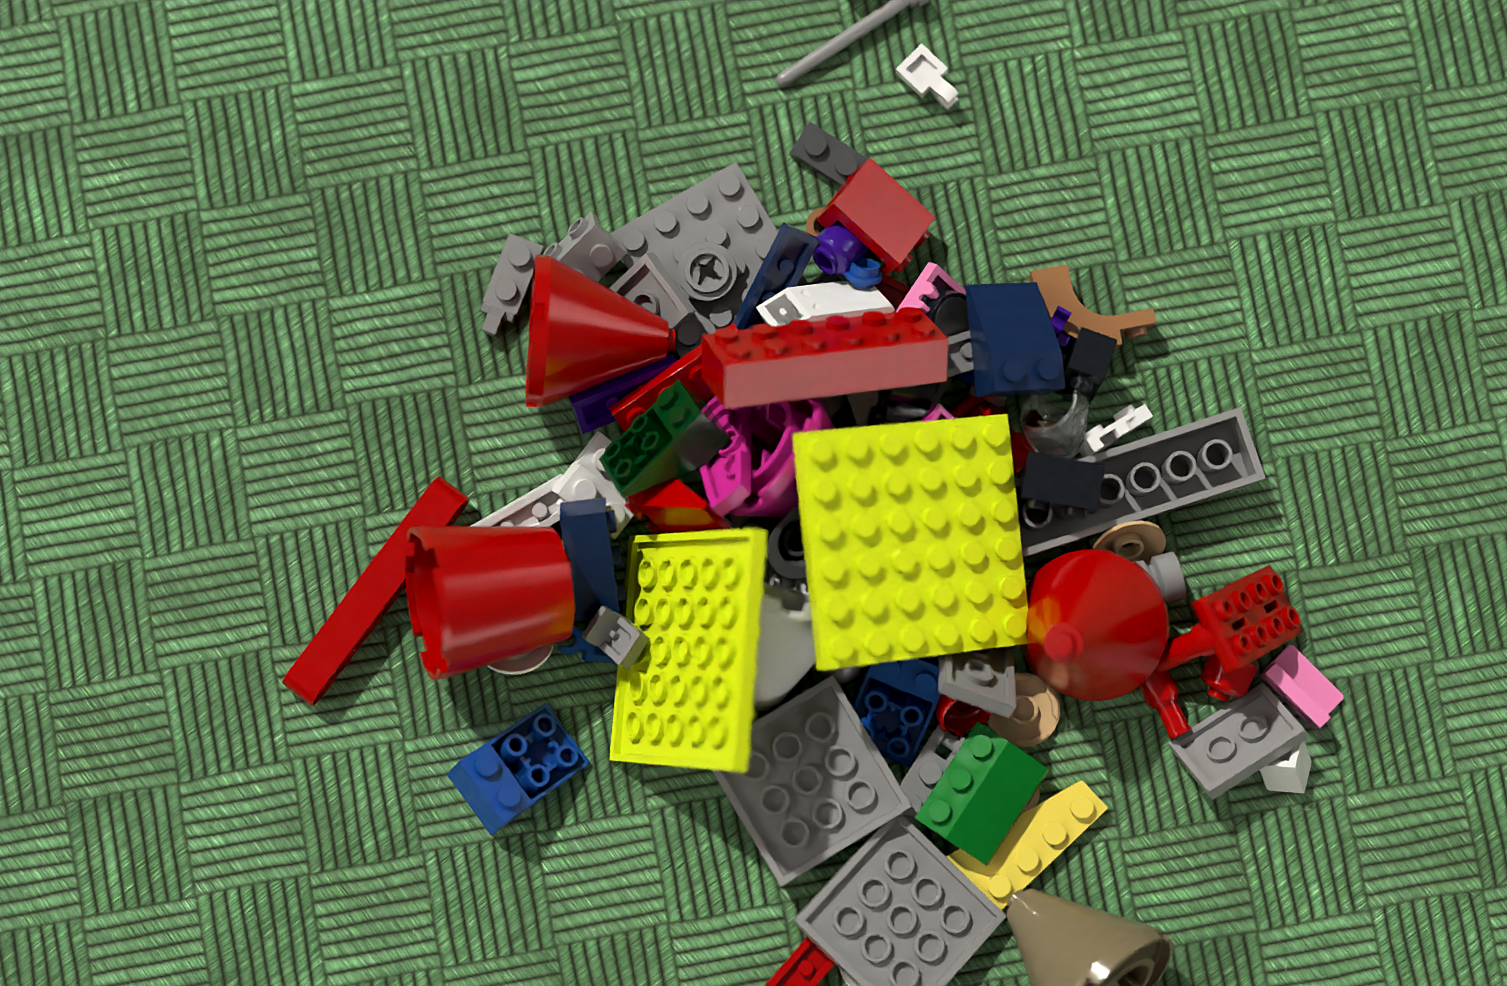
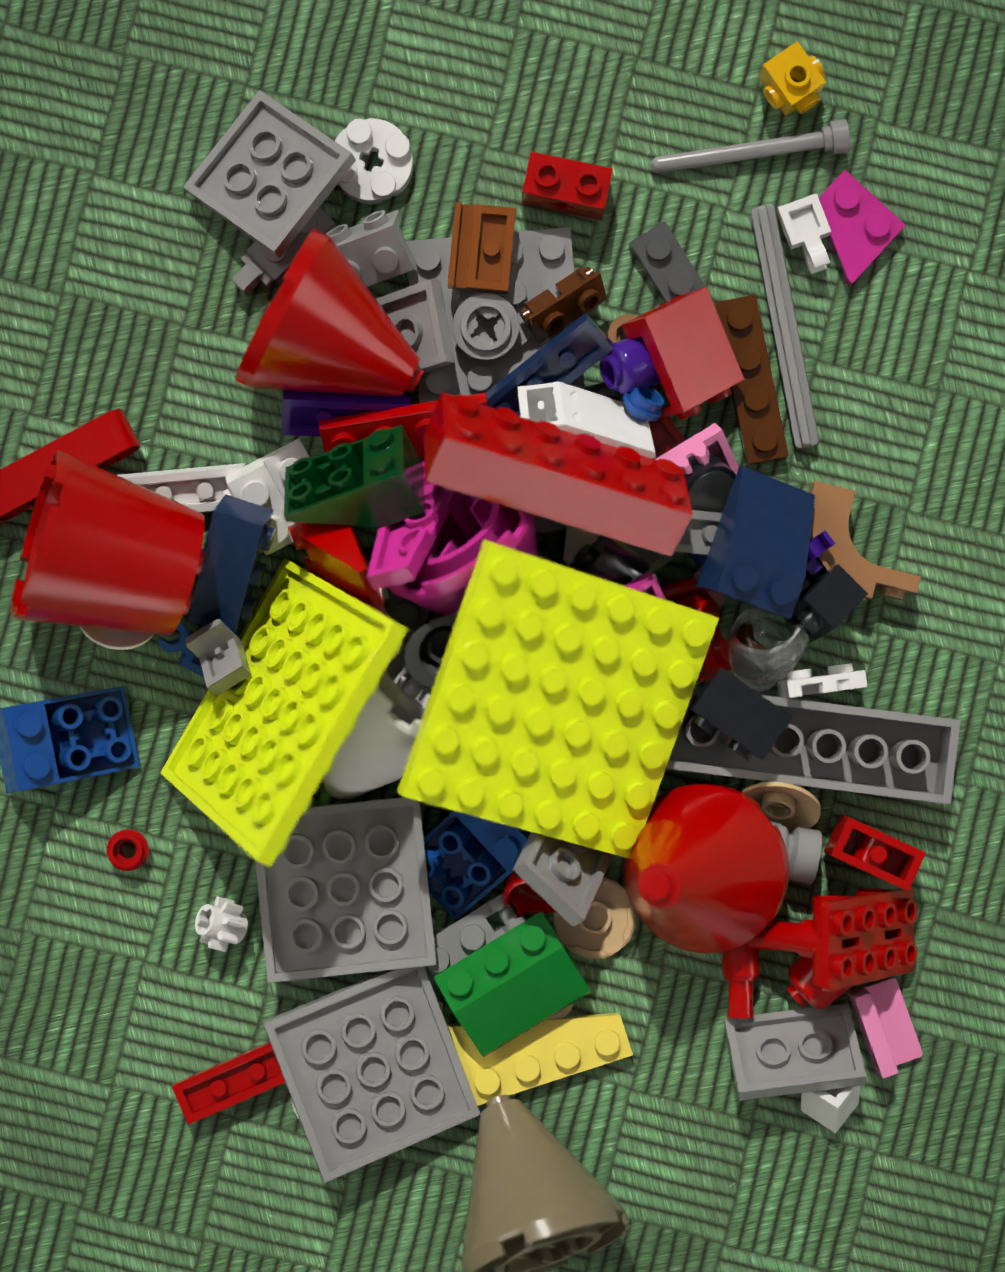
camera: 20 degrees right, 5 degrees up
(473, 230) = (269, 173): none -> light grey plate
(534, 168) = (392, 148): none -> white plate
(600, 835) = (115, 854): none -> red plate
(674, 210) = (481, 248): none -> dark orange plate
(718, 130) = (566, 185): none -> red brick
(719, 859) = (221, 924): none -> white gear
(770, 210) = (579, 293): none -> reddish brown hinge
(947, 161) = (784, 326): none -> light grey axle
(950, 227) = (755, 396): none -> reddish brown plate
(966, 52) = (858, 225): none -> dark pink wing
(1223, 547) = (874, 852): none -> red brick

